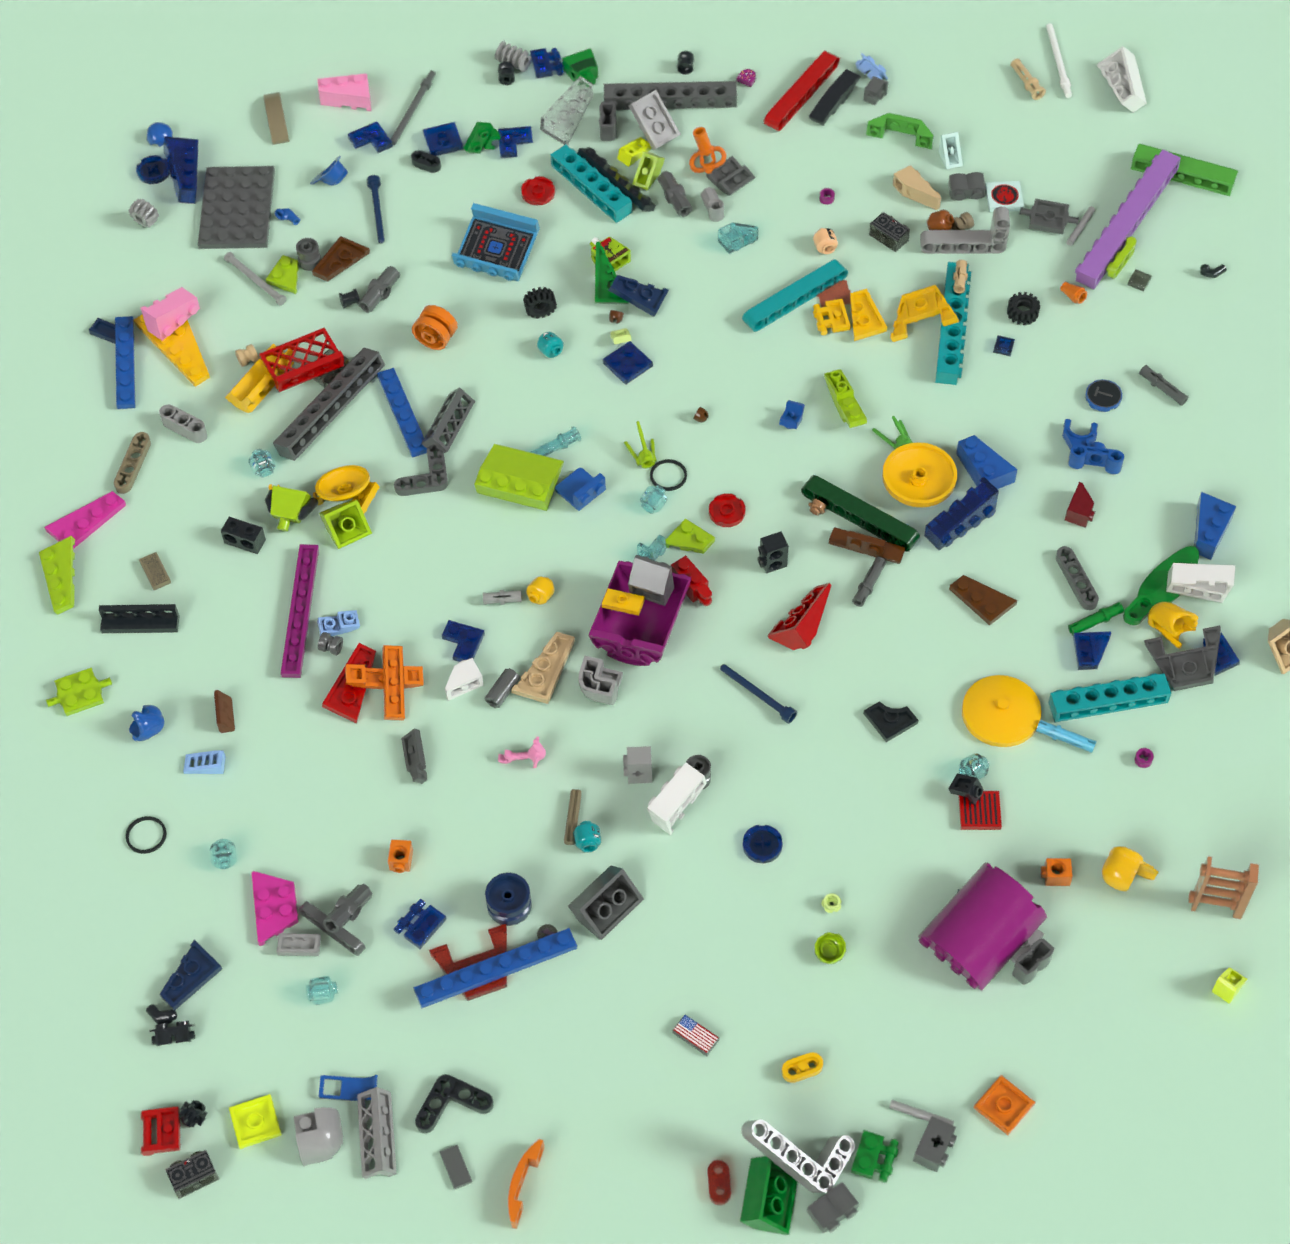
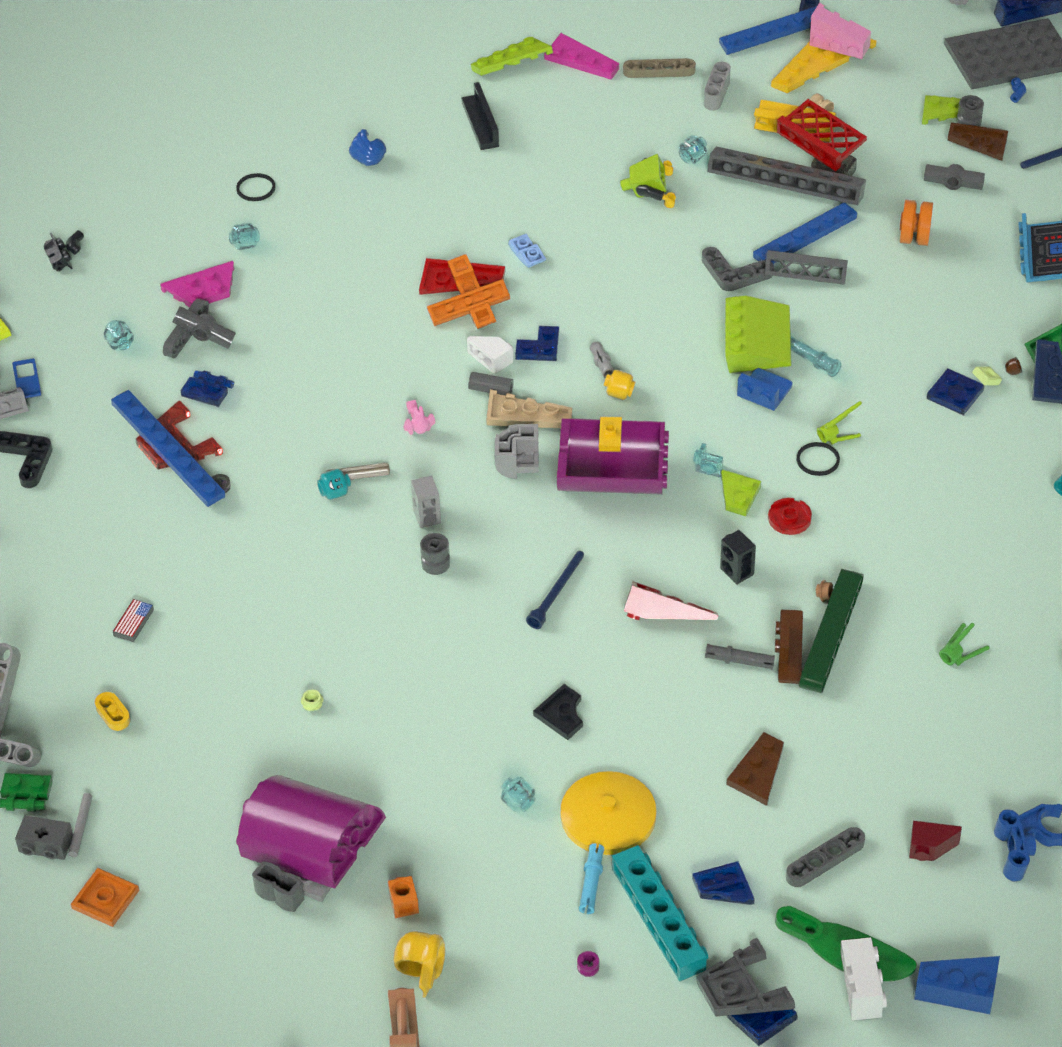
camera: 75 degrees right, 10 degrees down
(79, 691) = (390, 103): lime plate -> none
(155, 571) = (541, 115): dark tan tile -> none
(193, 973) = (117, 251): dark blue wing -> none
(218, 768) = (340, 203): light blue slope -> none
(224, 712) = (398, 198): copper slope -> none
(243, 535) = (601, 158): black brick -> none
(280, 299) = (905, 112): light grey bar -> none
(298, 944) = (164, 310): light grey plate -> none
(299, 611) = (531, 220): magenta plate -> none
(330, 643) = (499, 249): dark grey wheel -> none
(342, 483) = (688, 207): yellow dish -> none
(345, 523) = (642, 223): lime slope -> none
(349, 298) = (929, 157): black bush -> none
(367, 495) = (671, 230): yellow plate -> none
(400, 848) = (275, 355): orange brick -> none
(414, 756) = (387, 341): dark grey hinge -> none
(508, 899) = (245, 439): dark blue wheel -> none
(539, 302) = (994, 296): black tyre -> none
(550, 344) = (944, 320): teal head -> none
(606, 902) = (263, 516): dark grey slope -> none
(651, 580) = (636, 442): slope -> none
(653, 499) = (774, 448): clear light blue head -> none
(676, 796) = (387, 532): white wedge -> none
(698, 587) = (677, 500): red hinge -> none
(701, 415) = (909, 464): reddish brown hinge -> none
(762, 844) = (370, 630): clear blue tile -> none
(792, 415) = (941, 543): blue bracket -> none
(830, 948) = (254, 706): lime hair -> none
(844, 399) = (991, 586): lime slope -> none
(919, 474) = (906, 670): yellow dish -> none
(963, 515) = (865, 722): clear blue wedge -> none
(966, 786) = (484, 789): black bracket -> none
(982, 815) = (467, 813): red tile -> none
(985, 462) = (949, 732): blue wedge -> none
(1102, 615) = (778, 889): green pin -> none
(1172, 621) = (793, 961): yellow hair -> none

